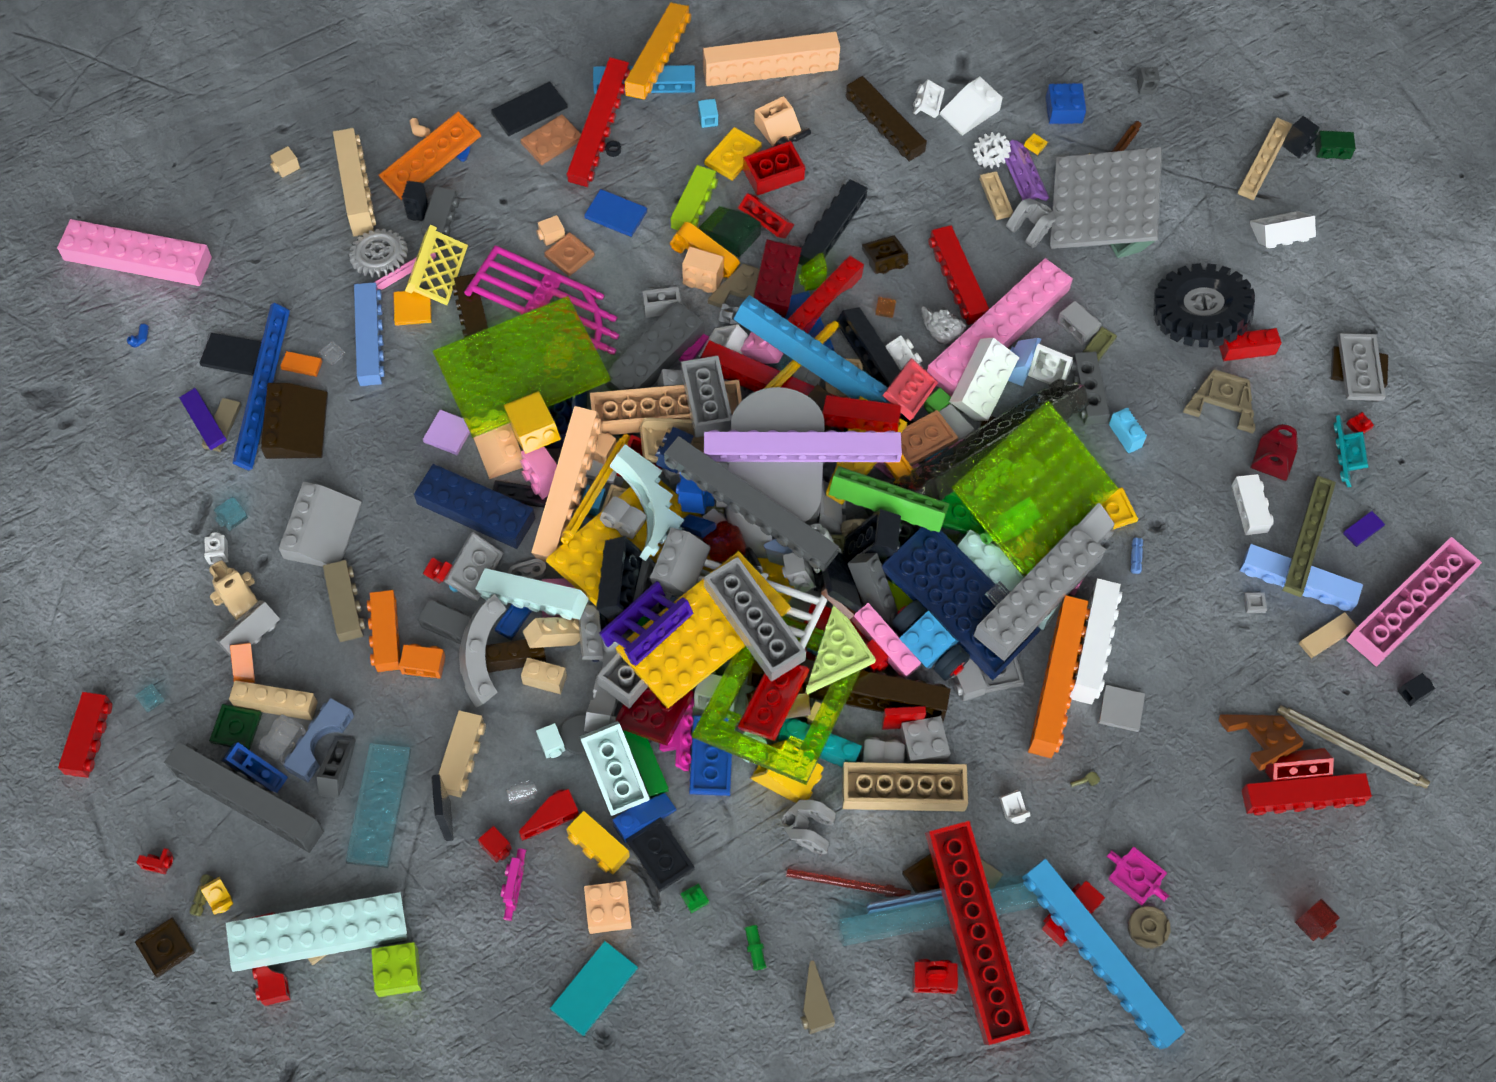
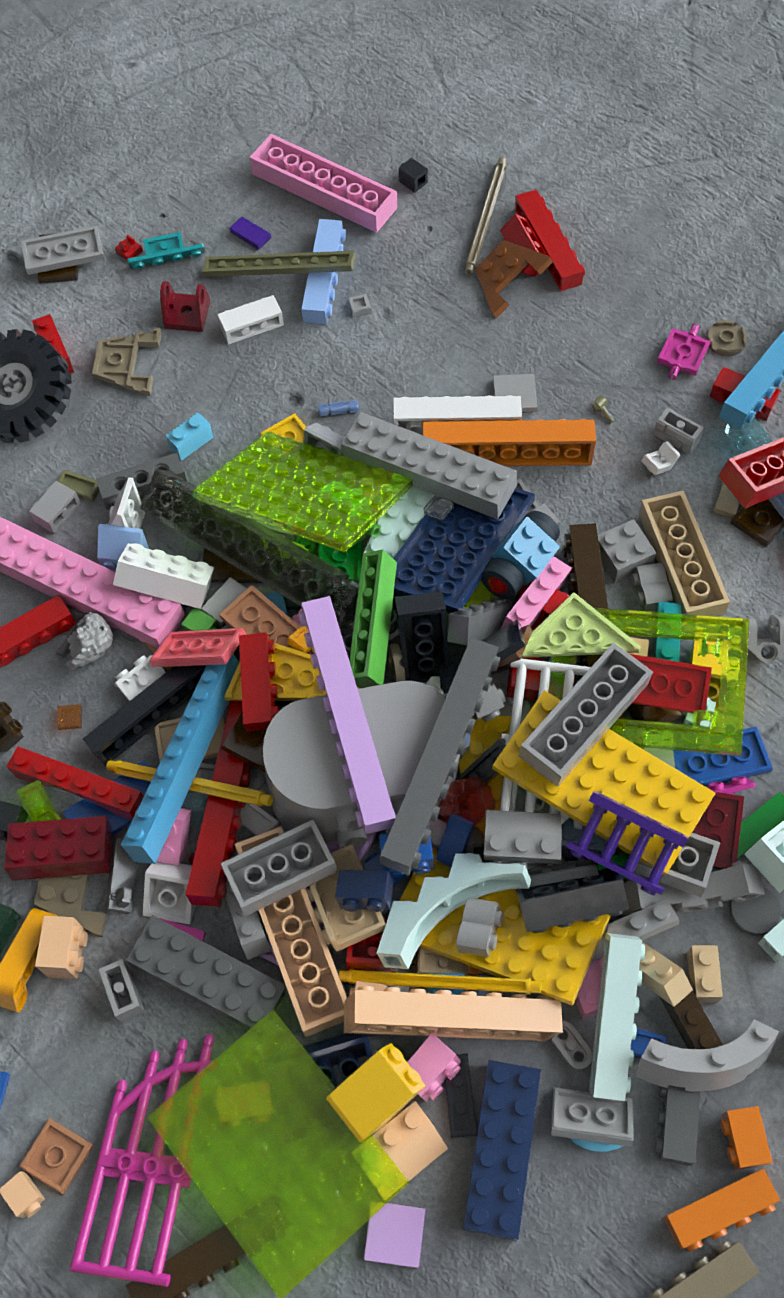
camera: 100 degrees left, 0 degrees up
(437, 570) = (612, 1164): red bracket -> none
(895, 716) = (612, 573): red tile -> none
(1040, 831) = (678, 431): none -> light grey brick
(1318, 921) = (670, 212): clear red brick -> none
(1328, 635) = (376, 246): tan tile -> none

